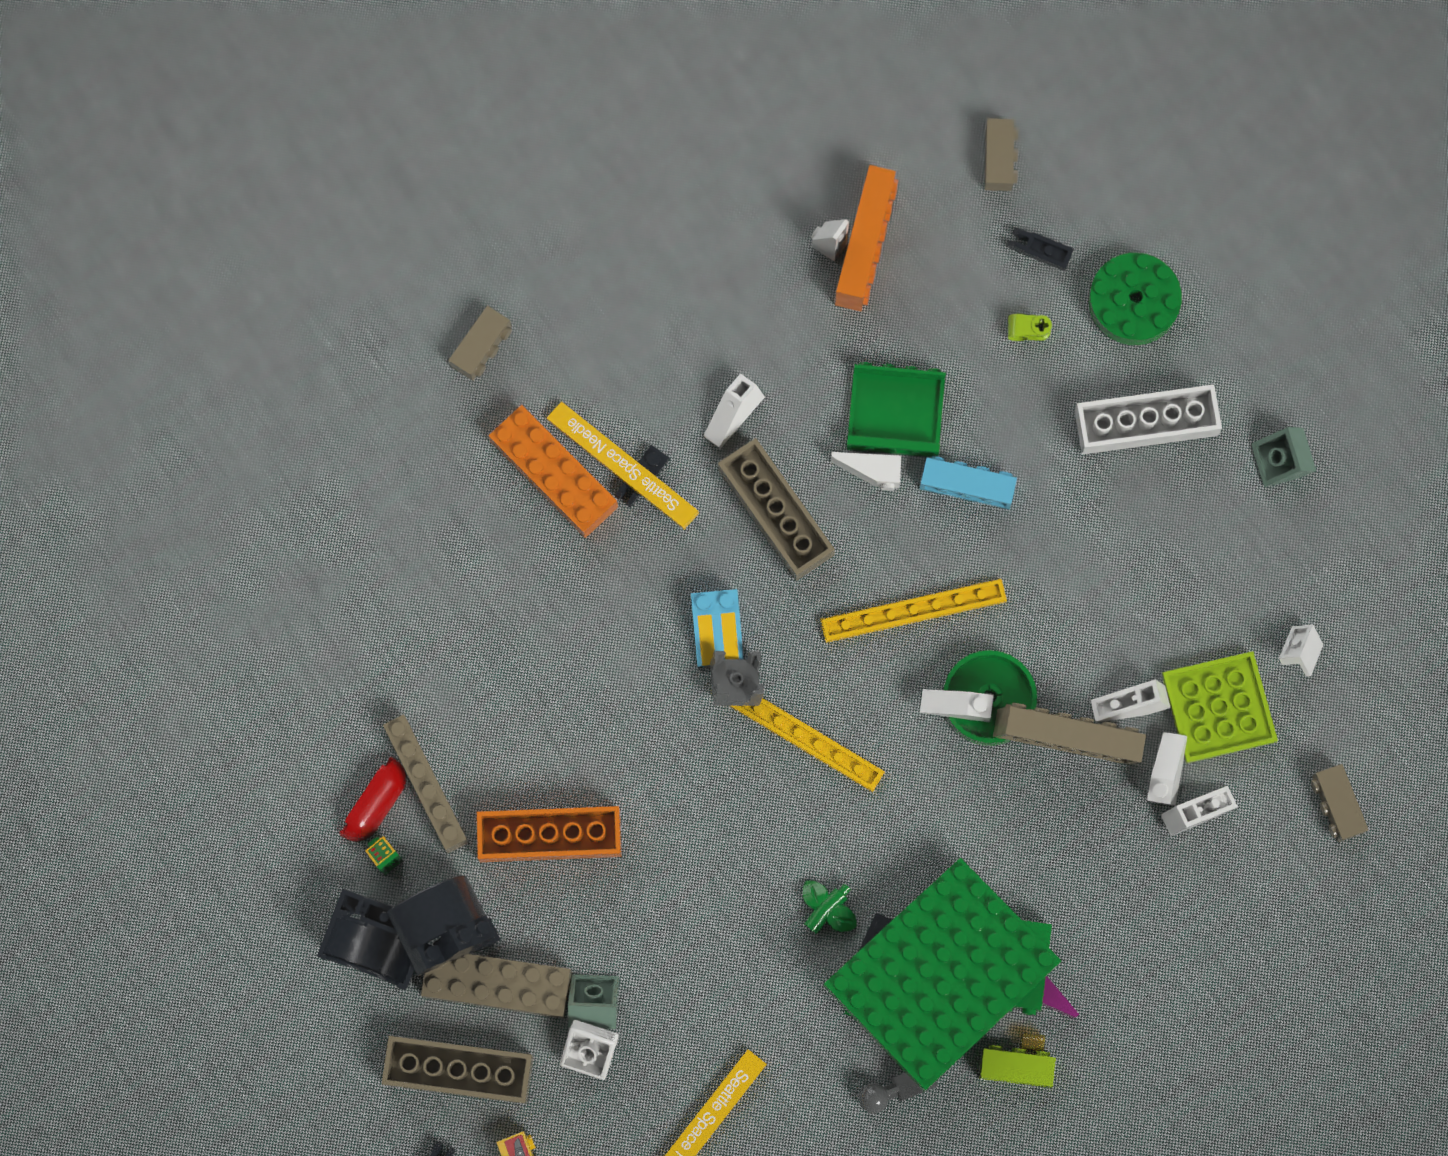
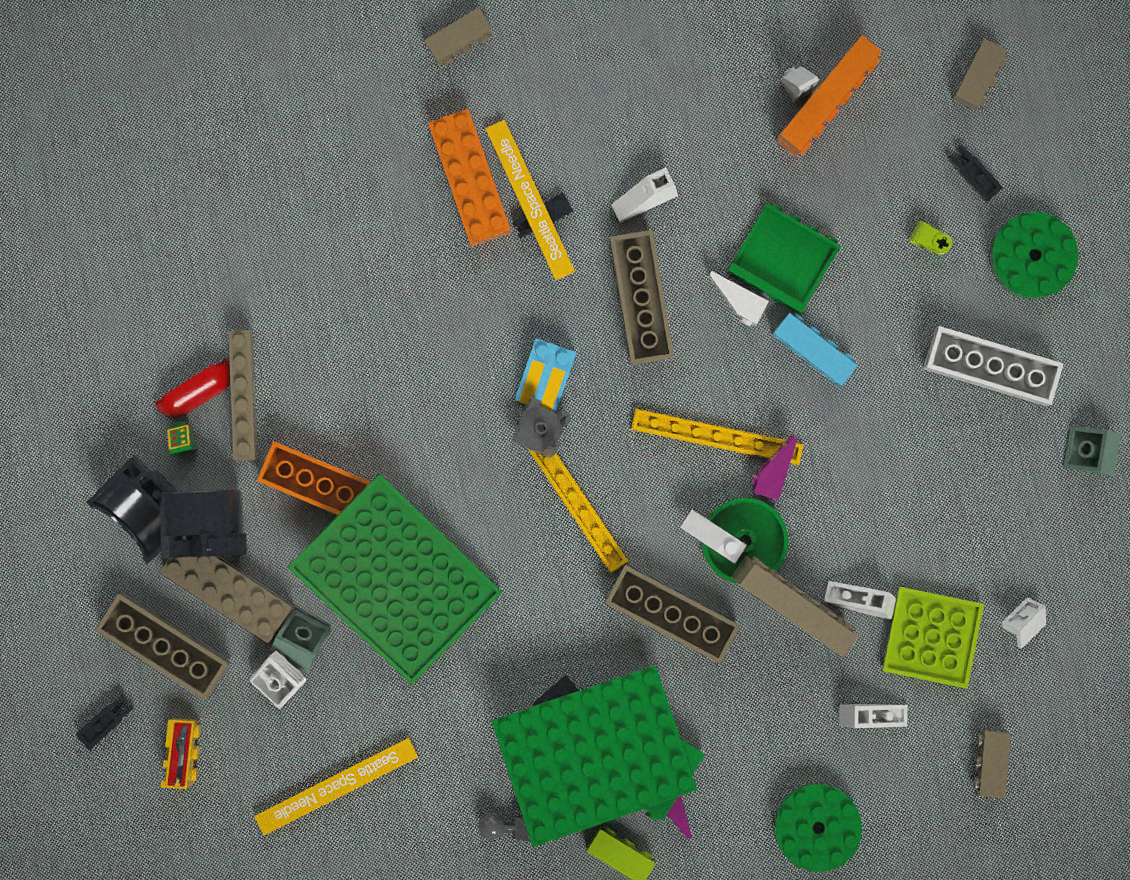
camera: 20 degrees right, 10 degrees up
(661, 893) = (394, 579): none -> green plate
(828, 907) = (528, 652): green plant -> none
(952, 801) = (672, 614): none -> dark tan brick
(985, 619) = (773, 472): none -> magenta slope
(1033, 1042) = (644, 840): clear yellow hinge -> none
(1167, 769) = (863, 670): white slope -> none
(1219, 933) = (820, 849): none -> green piece

